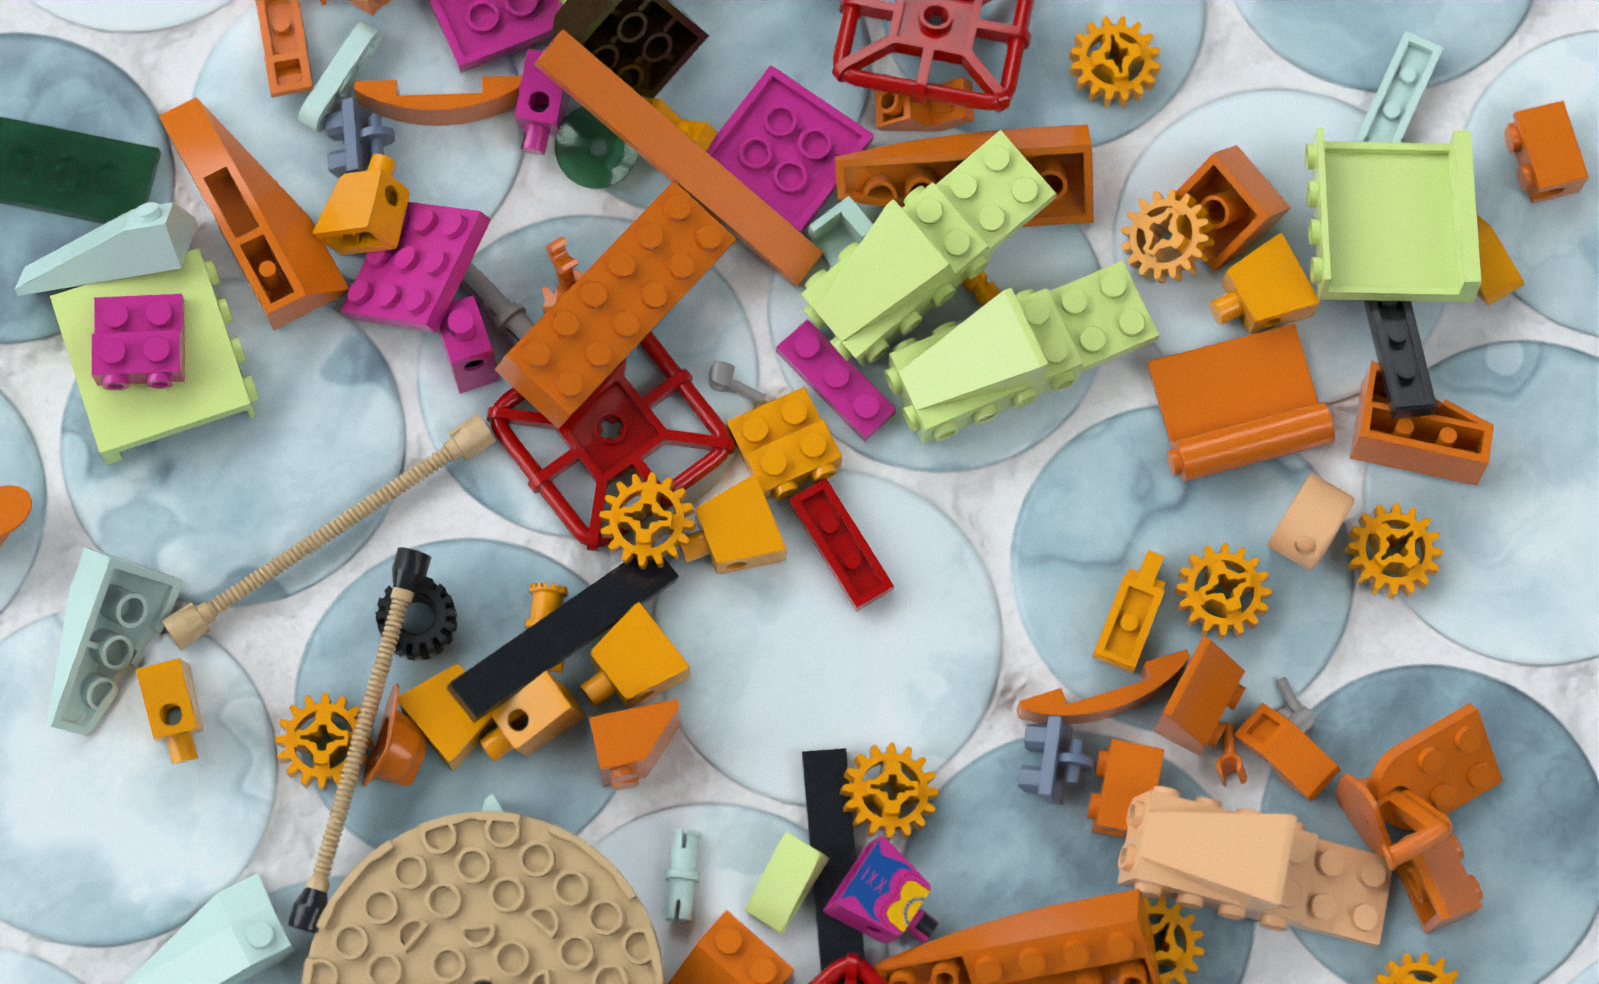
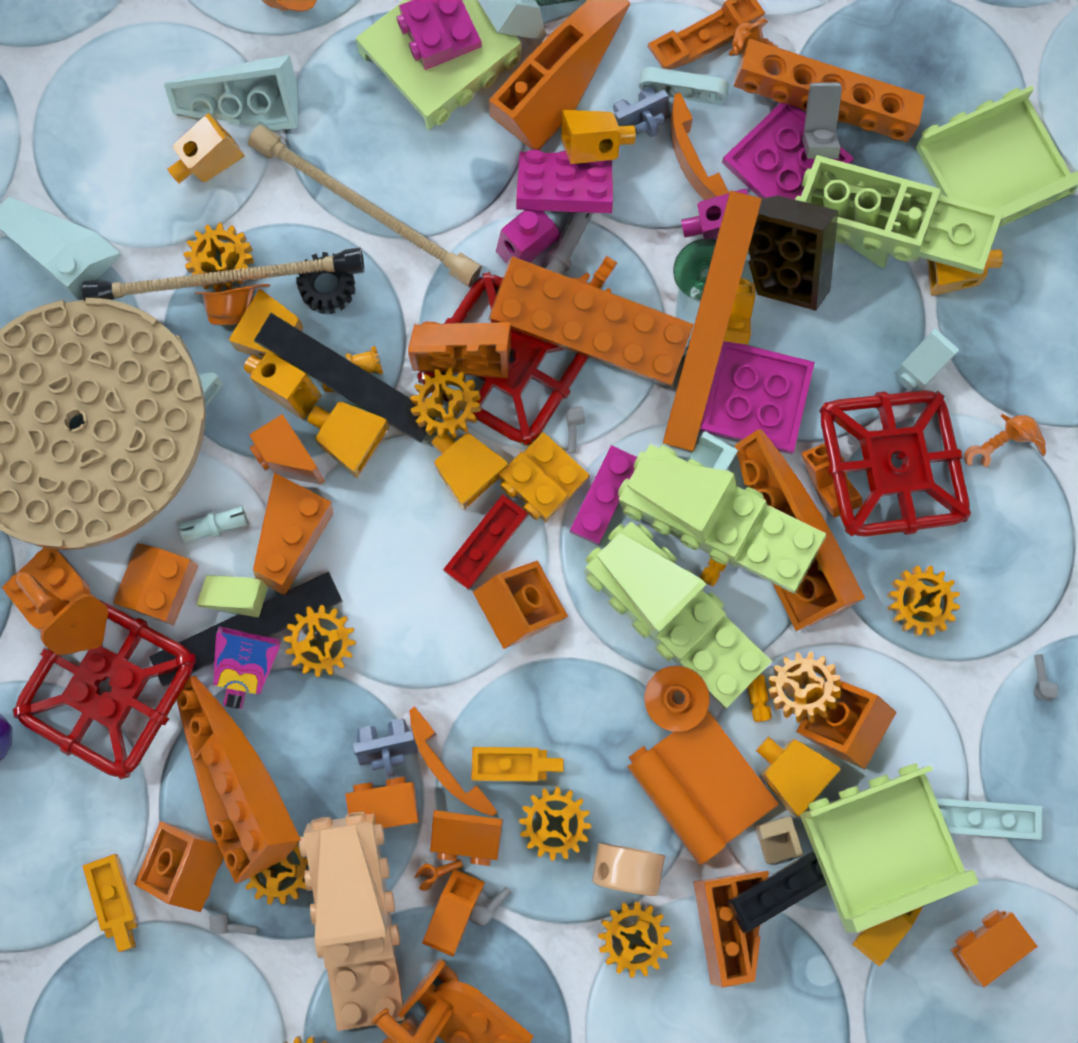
camera: 70 degrees right, 5 degrees up
(588, 467) = (464, 347): none -> orange wedge
(735, 777) = (289, 532): none -> orange wedge
(937, 532) = (520, 604): none -> orange slope
(1146, 394) = (661, 703): none -> orange dish
(1157, 296) = (759, 698): none -> light orange axle
(1336, 339) = (778, 840): none -> tan panel

